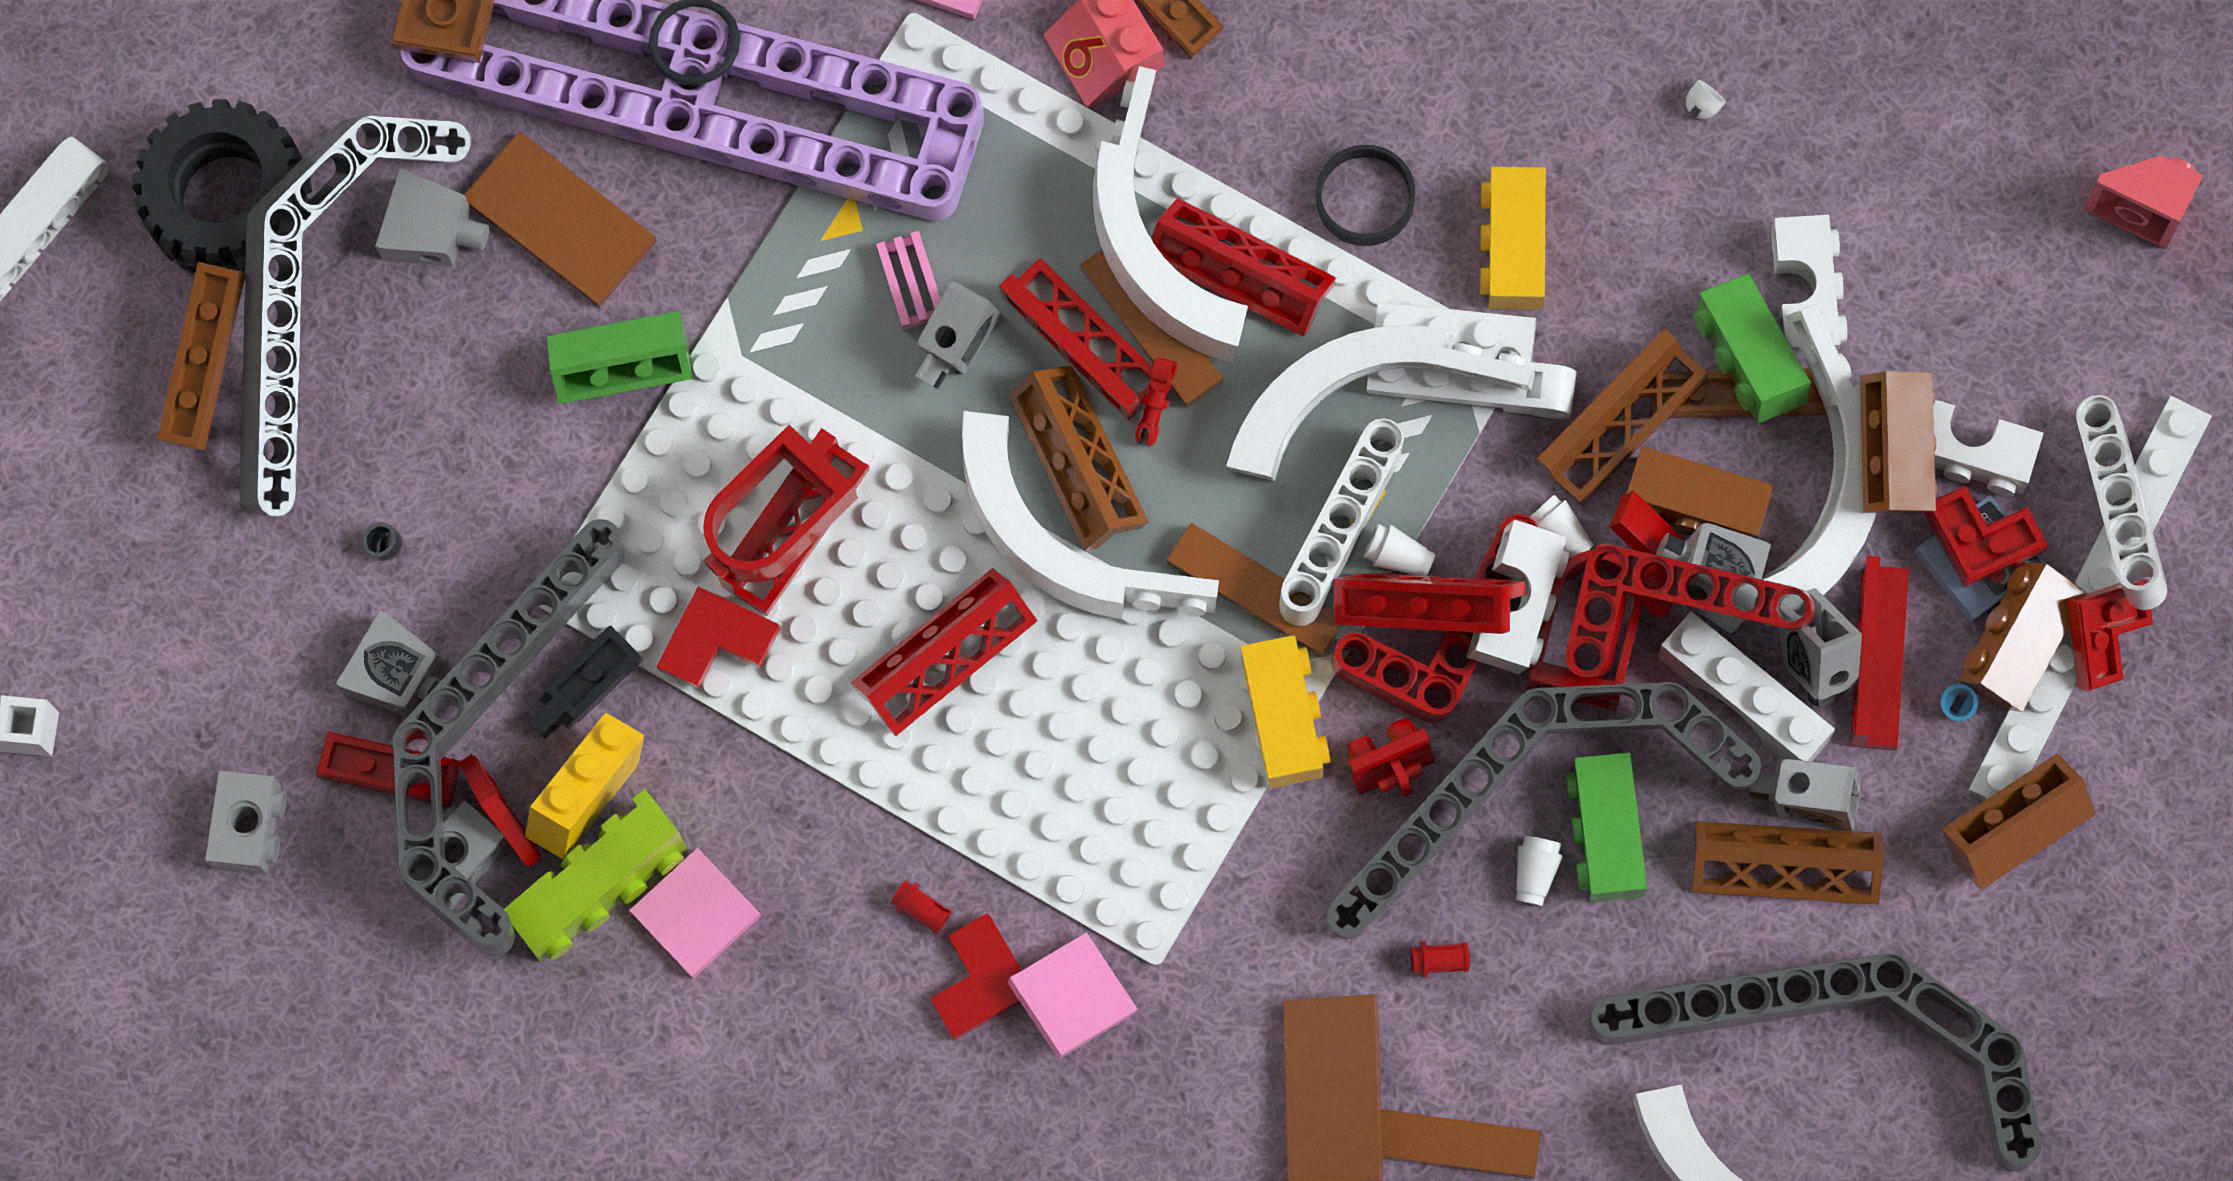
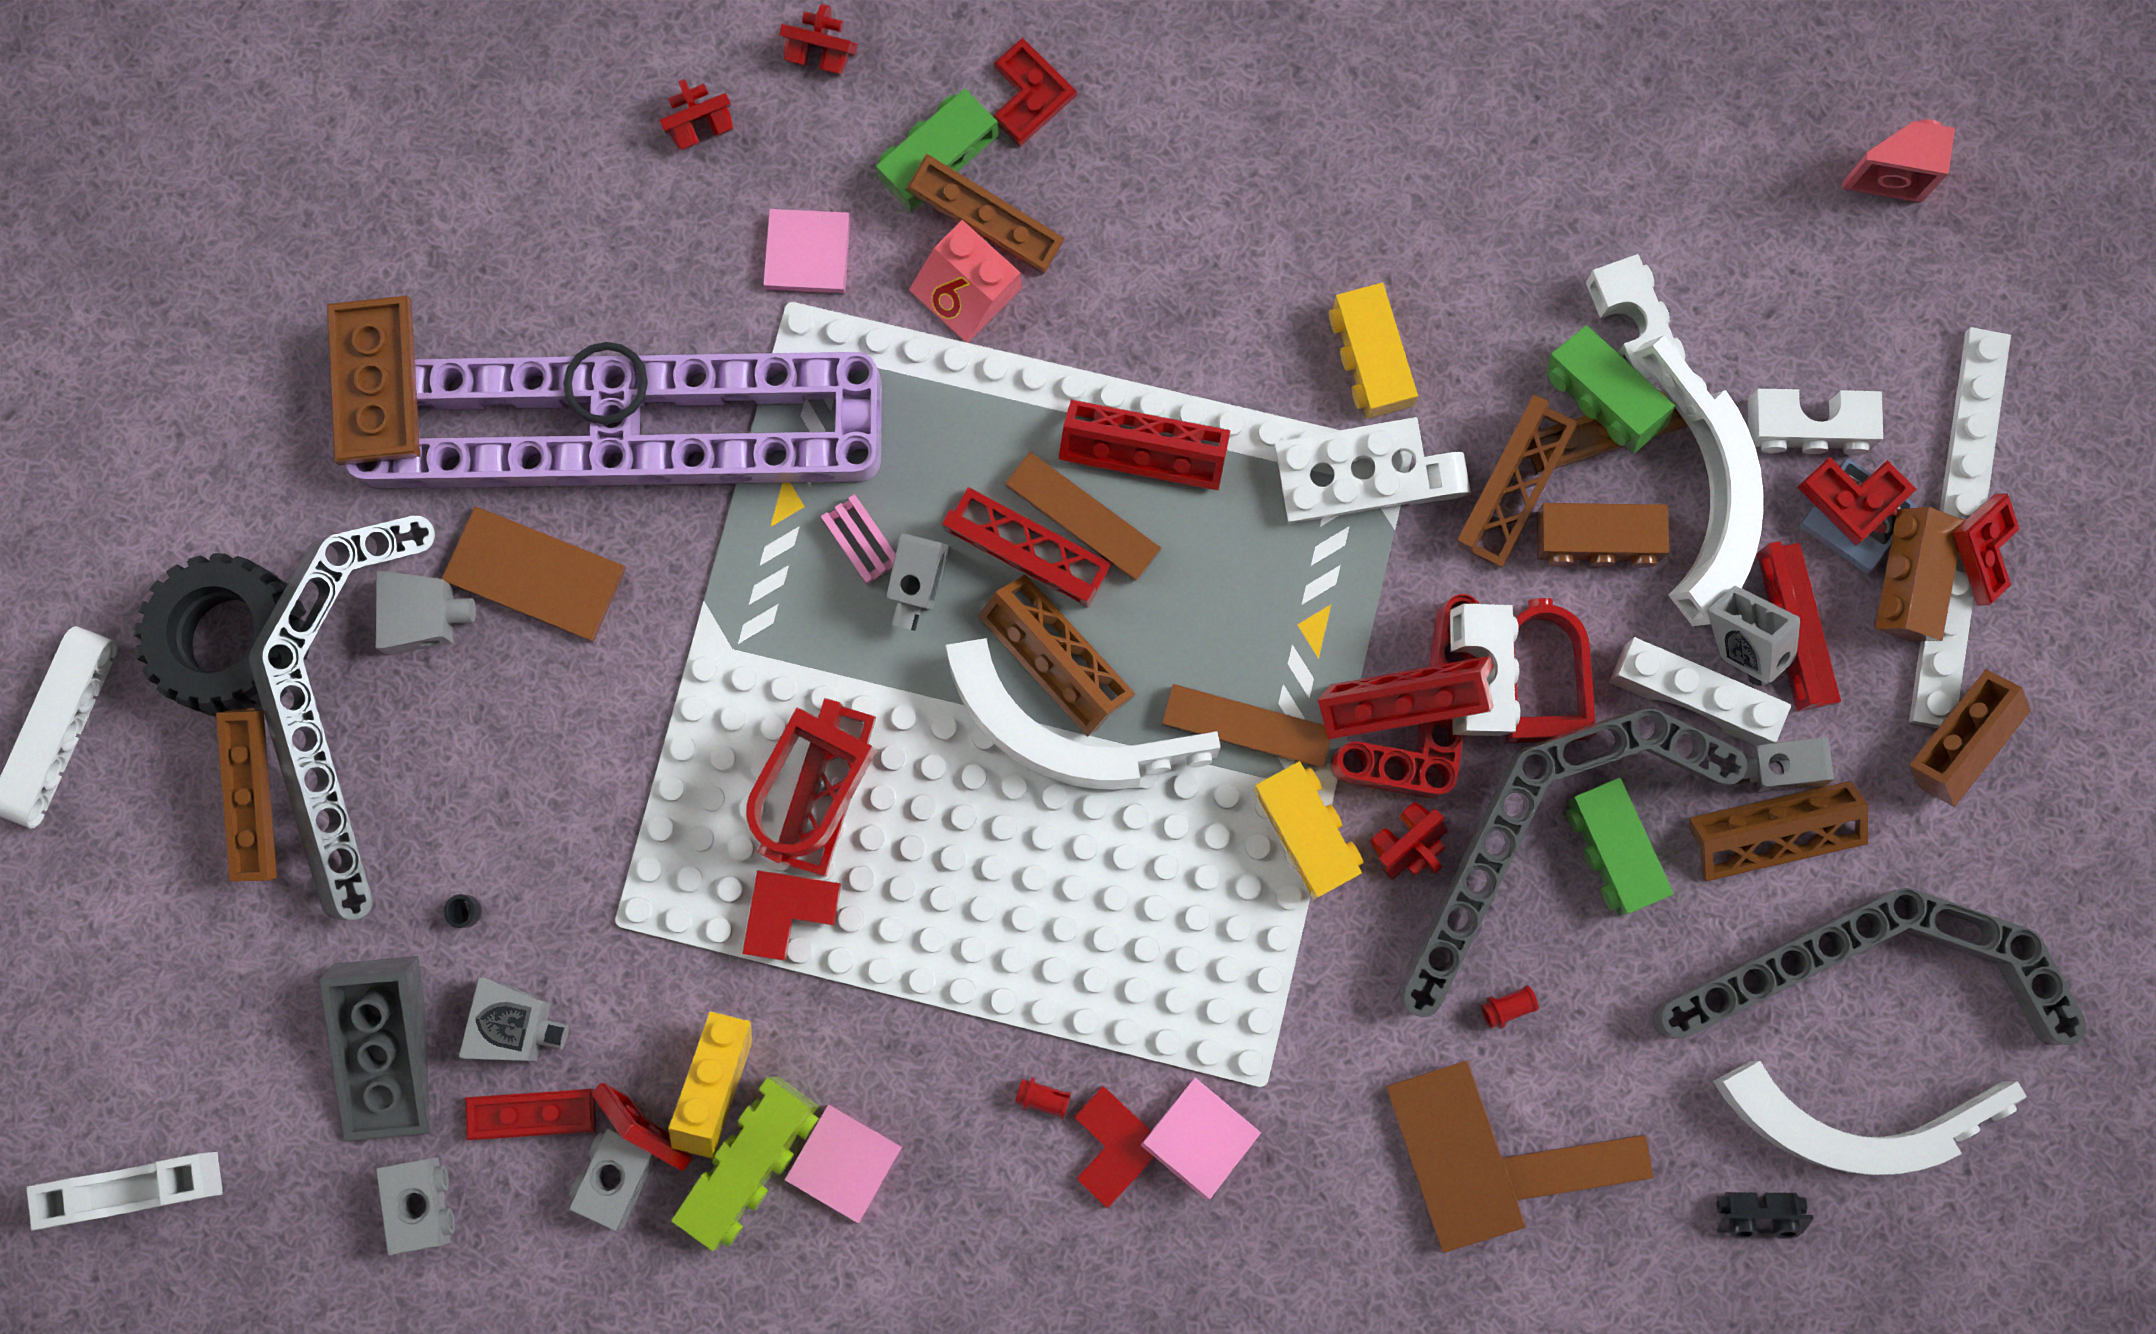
camera: 20 degrees left, 5 degrees up
(255, 654) = (378, 1046): none -> dark grey slope
(472, 703) = (586, 1041): dark grey beam -> none
(585, 682) = (683, 984): black hinge -> none
(619, 357) = (624, 684): bright green brick -> none
(936, 638) = (987, 858): red fence -> none
(1148, 279) = (1064, 475): white arch -> none
(1160, 382) = (1109, 585): red piece -> none
(1324, 370) = (1227, 549): white arch -> none
(1343, 501) = (1311, 627): white beam -> none
(1356, 152) = (1231, 310): black tyre -> none
(1397, 552) = (1360, 657): white cone -> none
(1536, 869) = (1567, 902): white cone -> none
(1560, 519) = (1491, 589): white cone -> none
(1643, 531) = (1588, 591): red tile -> none
(1675, 590) = (1625, 627): red beam -> none
(1705, 99) = (1495, 183): white hinge -> none
(1724, 551) = (1645, 596): light grey torso -> none
(1898, 442) = (1769, 437): brick -> none
(1968, 706) = (1887, 650): dark azure hinge -> none
(2130, 518) = (1974, 450): white beam -> none

